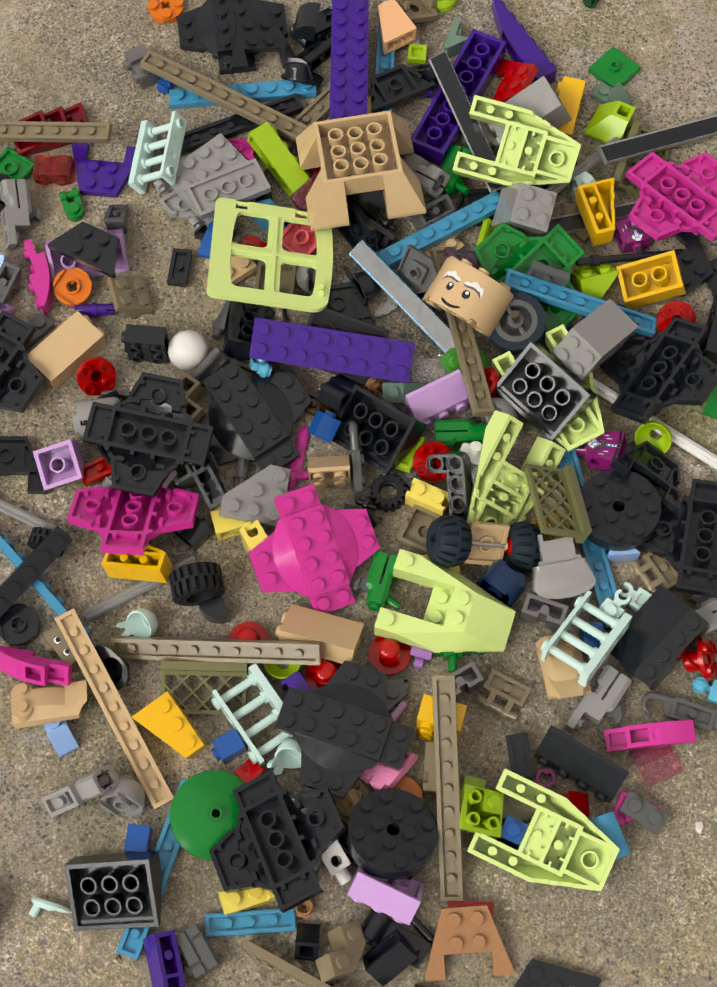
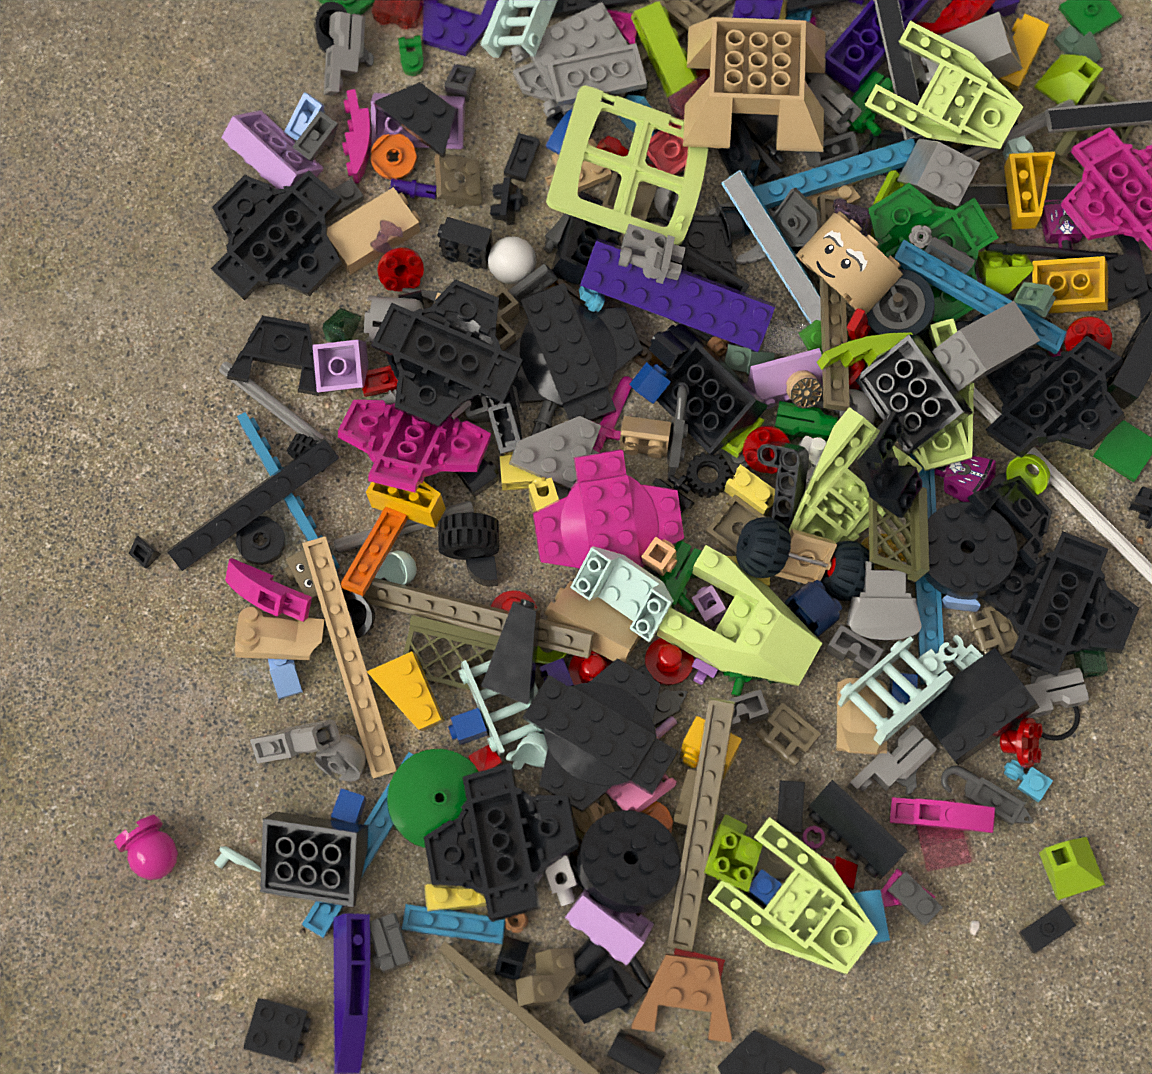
camera: 10 degrees right, 5 degrees up
(54, 432) = (341, 326): none -> clear green slope
(77, 345) = (386, 229): none -> piece
(118, 613) = (374, 551): none -> orange plate
(178, 304) = (511, 201): none -> black hips
(257, 675) = (515, 655): none -> black slope
(303, 317) = (651, 253): none -> light grey hips
(339, 599) = (625, 588): none -> light aqua slope
(363, 566) = (660, 556): none -> light nougat brick
(407, 596) = (703, 600): none -> lavender brick
(452, 405) = (803, 388): none -> tan wheel
(487, 347) = (858, 325): none -> red plate
(496, 361) = (866, 348): none -> lime slope
(516, 263) = (914, 236): none -> light grey plate
(540, 466) = (884, 478): none -> black slope
(626, 294) = (1035, 298): none -> sand green slope

